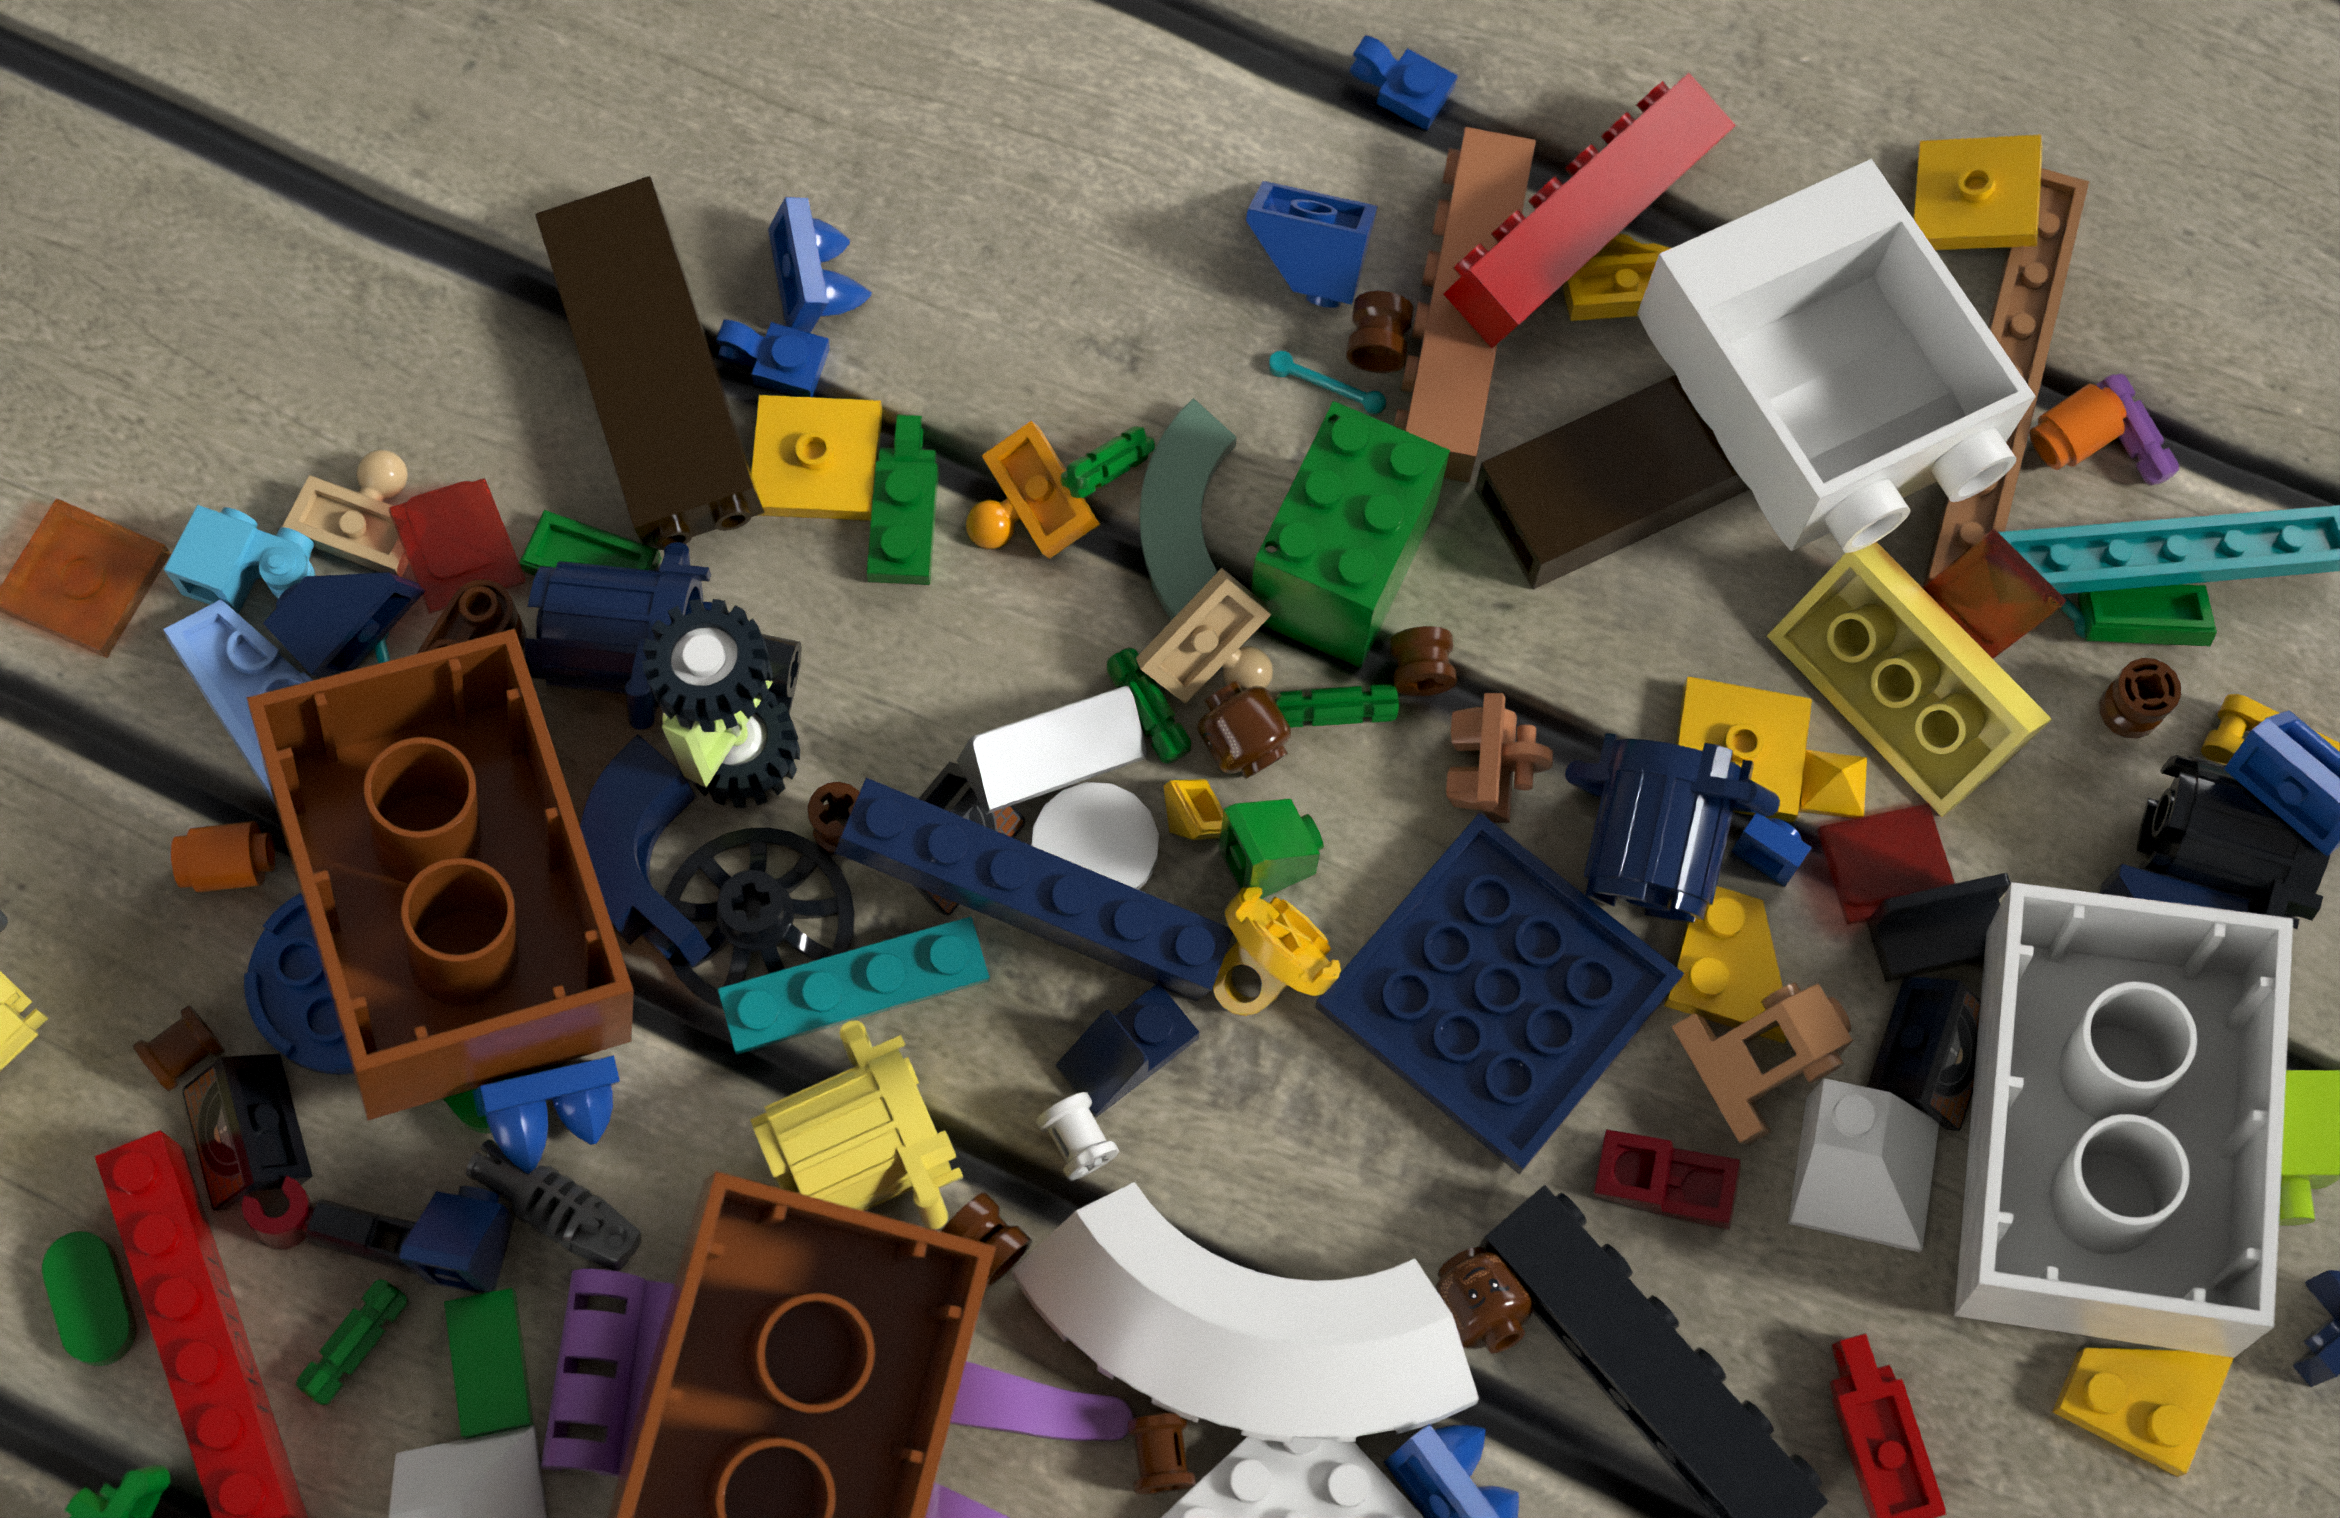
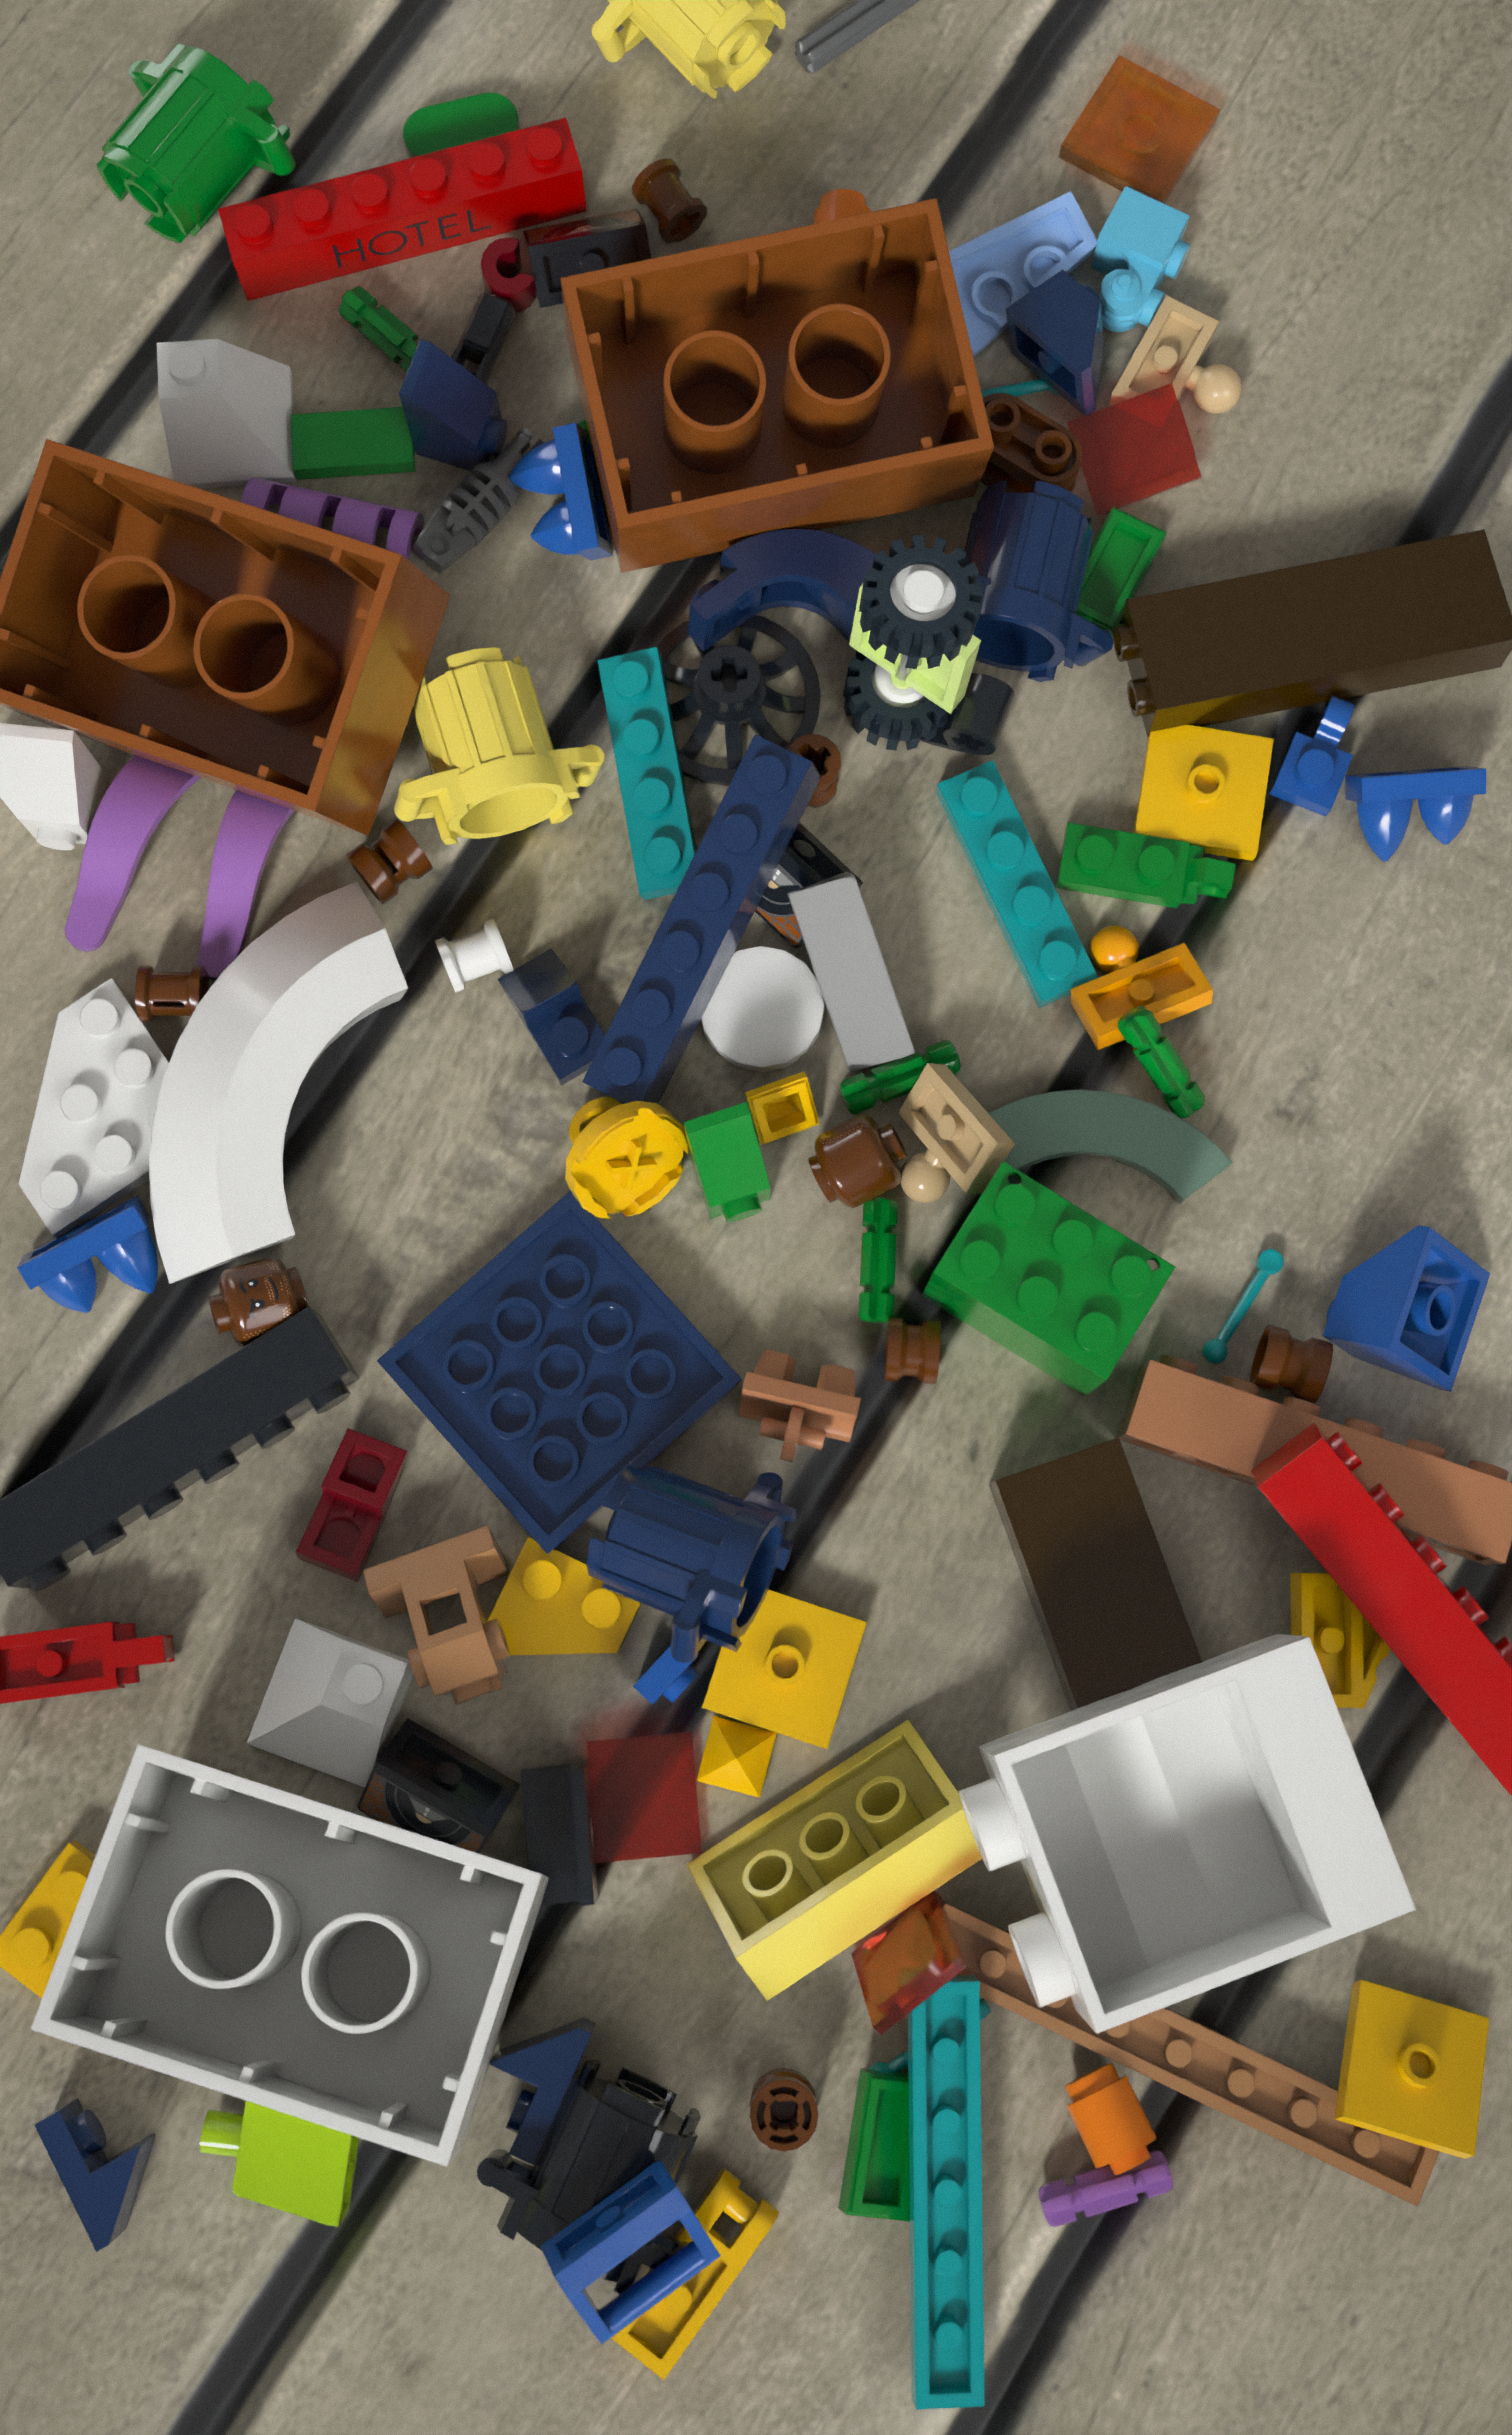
camera: 100 degrees right, 10 degrees up
(932, 619) = (1015, 883): none -> teal plate

